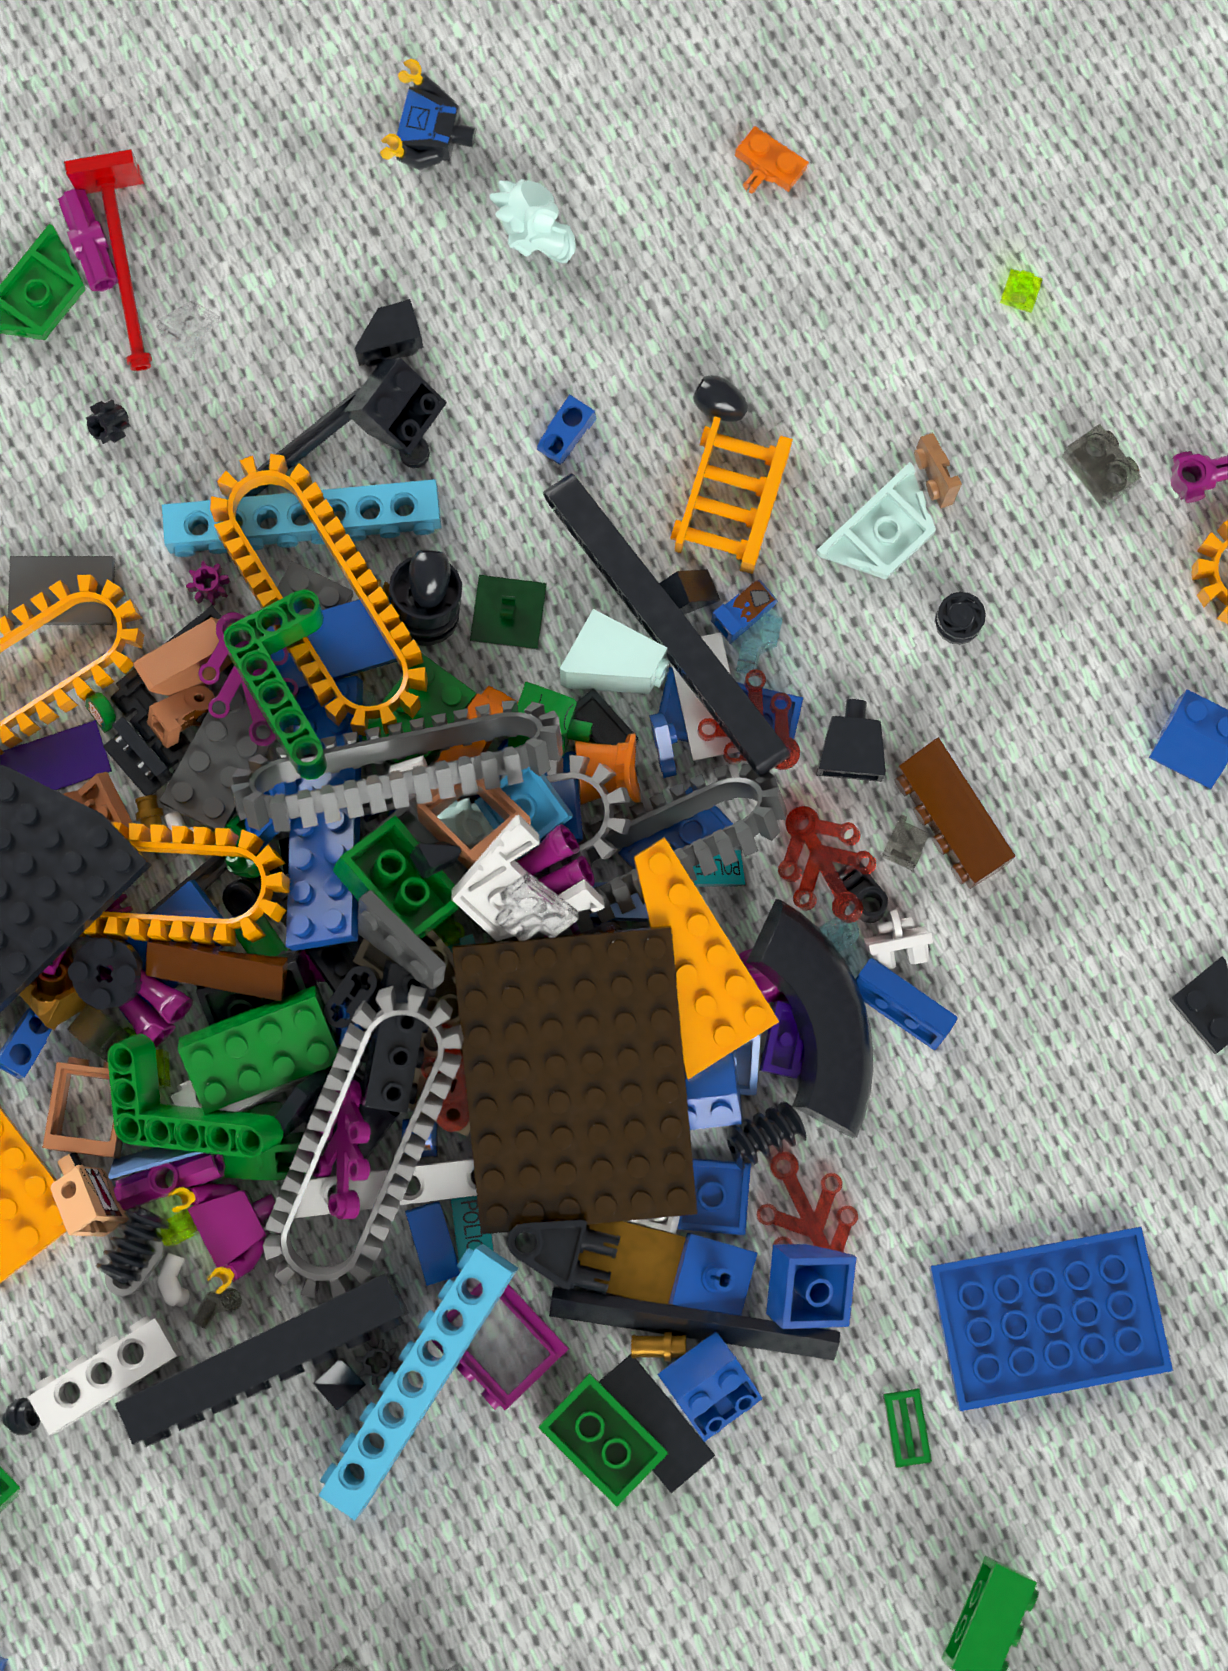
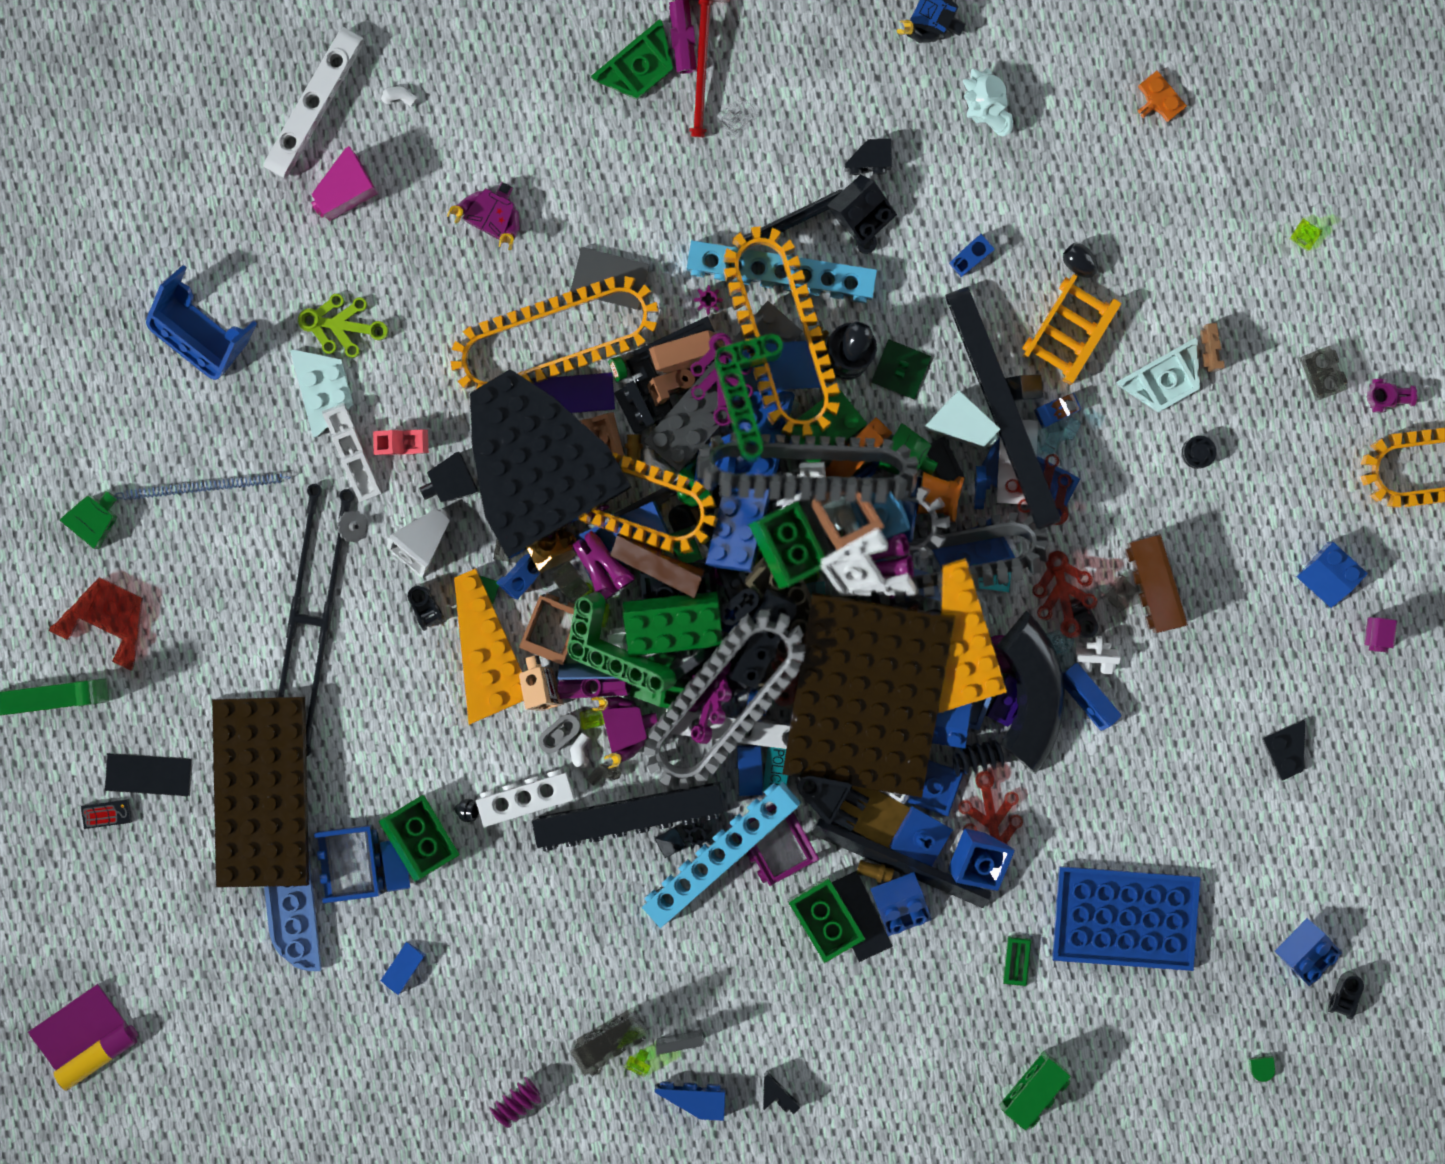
camera: 20 degrees right, 10 degrees up
(107, 421) = (667, 170): black gear -> none
(126, 975) = (573, 543): black plate -> none
(133, 1245) = (563, 724): black piece -> none
(398, 941) = (779, 583): dark grey wing -> none
(434, 857) = (816, 535): black slope -> none
(534, 908) = (870, 583): clear hinge -> none
(853, 746) = (1104, 520): black torso -> none

